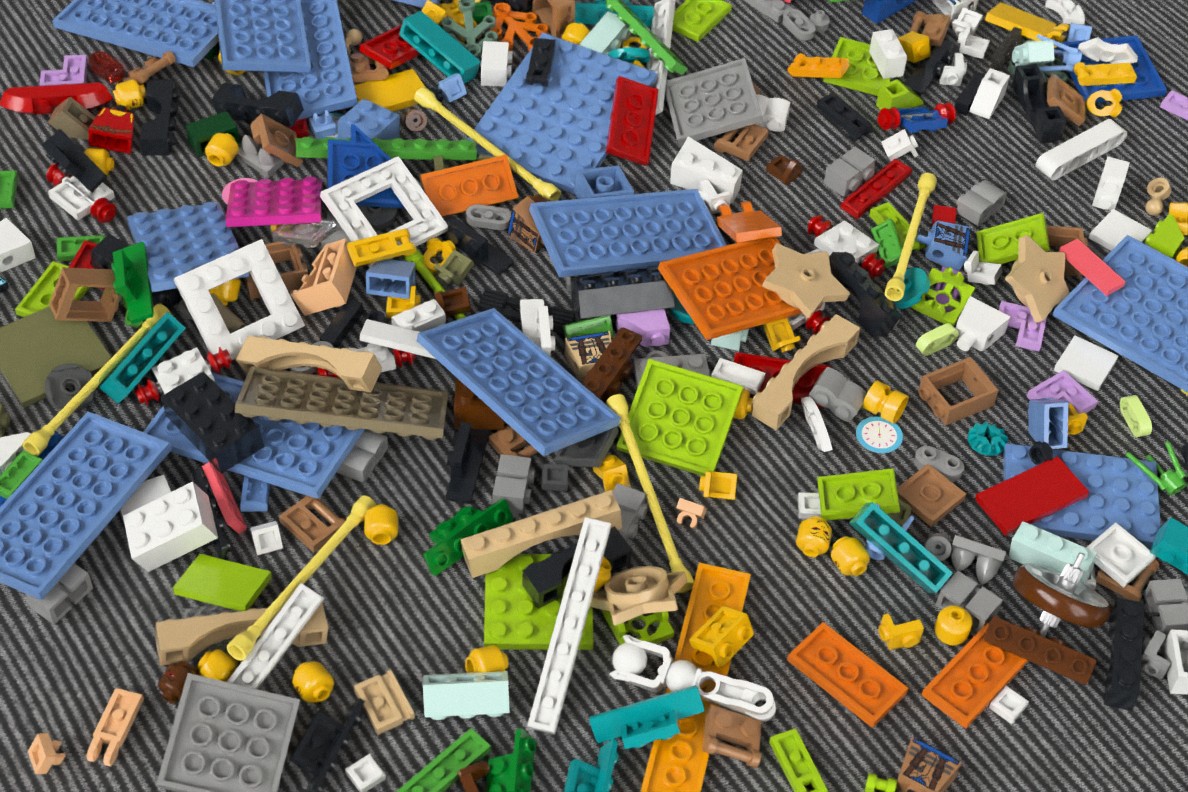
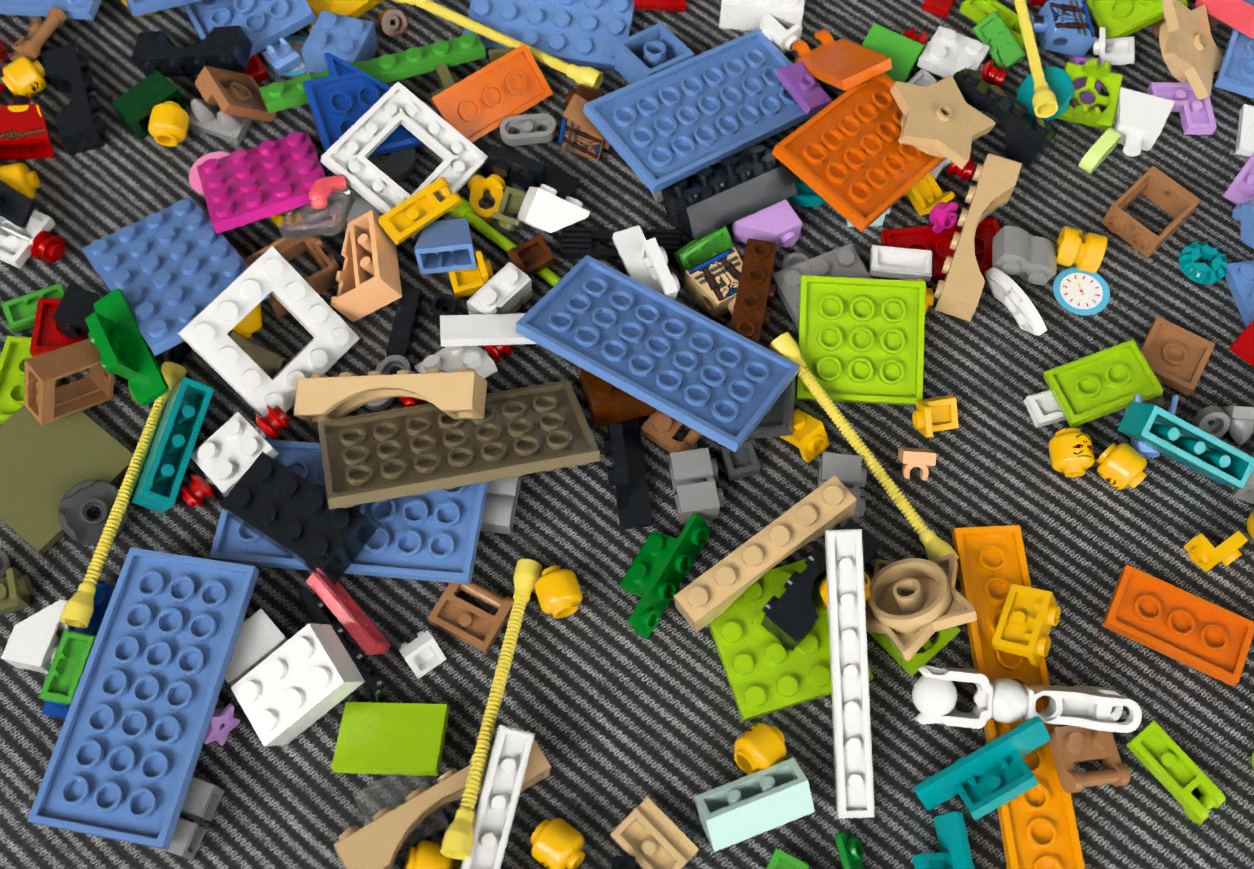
camera: 15 degrees left, 15 degrees up
(111, 545) = (221, 724): none -> lavender plate
(254, 495) = (385, 599): medium blue plate -> none
(314, 213) = (322, 187): none -> coral arm
(478, 274) = (548, 212): none -> white slope
(711, 233) = (803, 87): none -> medium lavender plate
(781, 347) = (943, 216): none -> dark pink plate
(796, 229) = (899, 48): none -> bright green tile
(943, 462) = (1164, 307): light grey plate -> none

